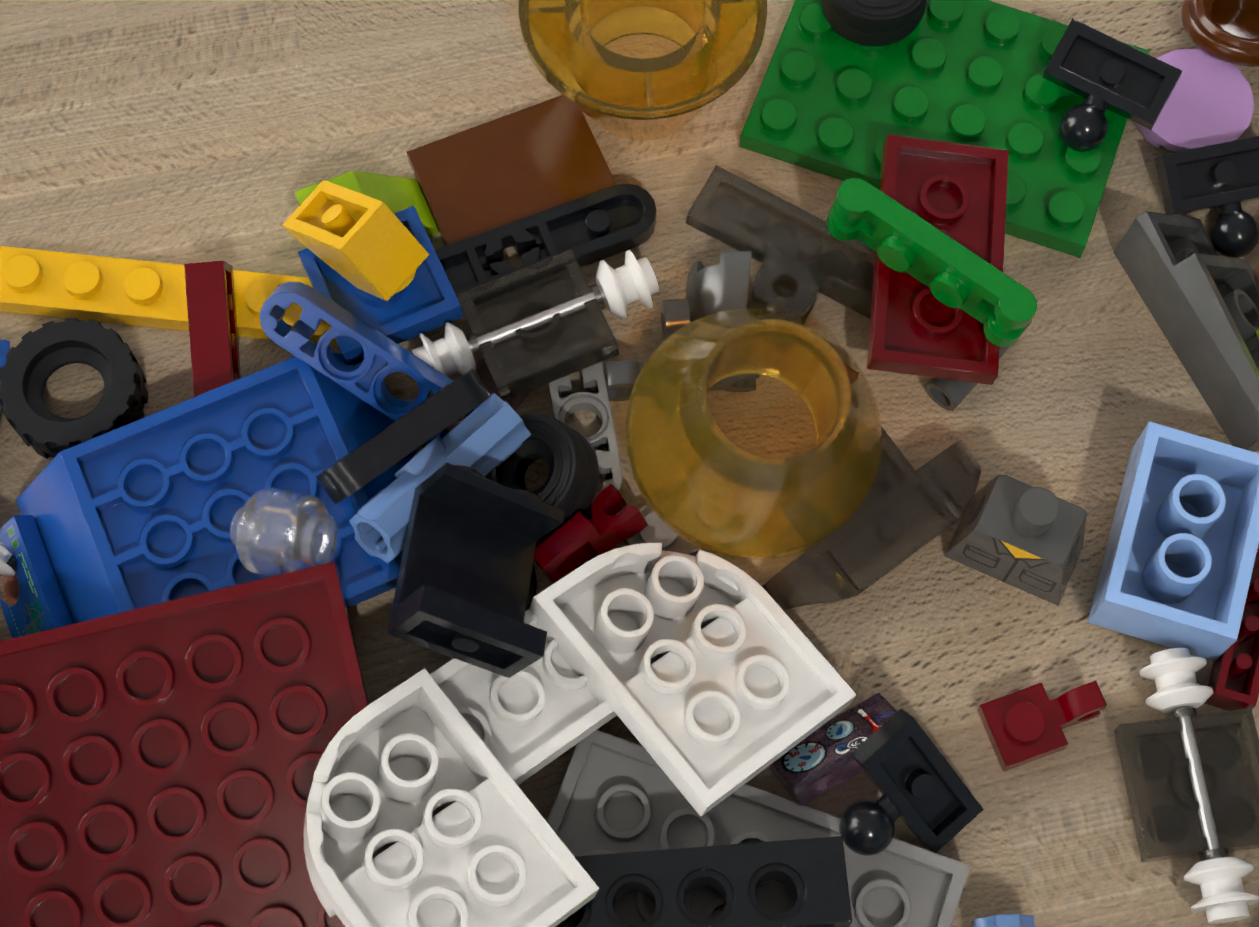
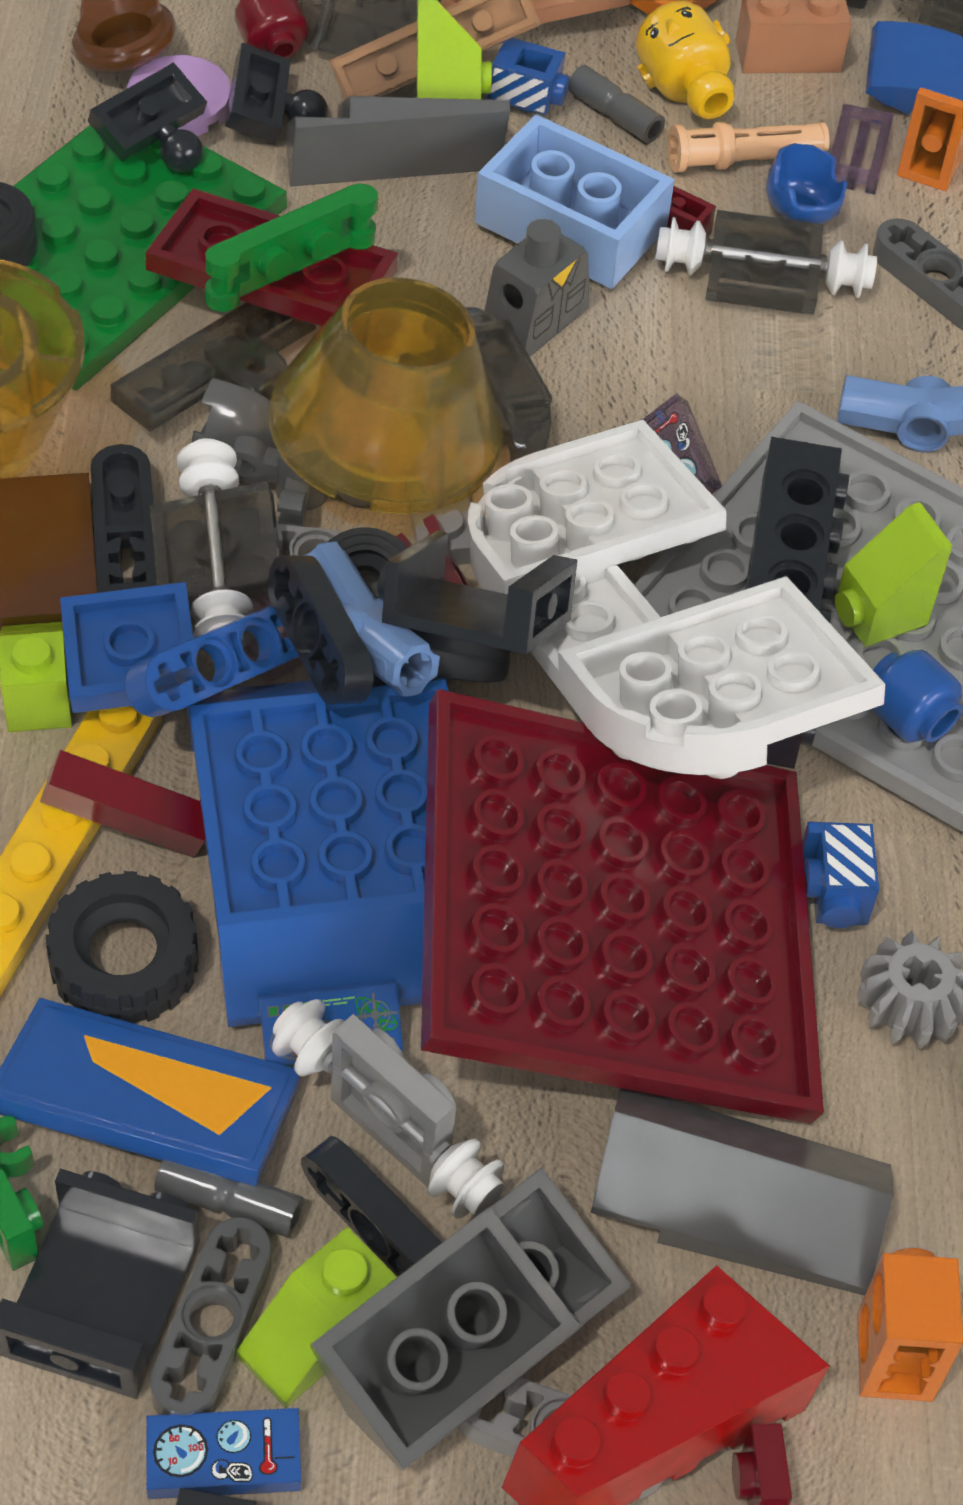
camera: 80 degrees left, 15 degrees down
(283, 532) = (387, 735): clear head -> none
(357, 239) = (93, 623): yellow slope -> none
(913, 786) = (730, 409): black plate -> none
(1030, 725) = (685, 345): dark red plate -> none

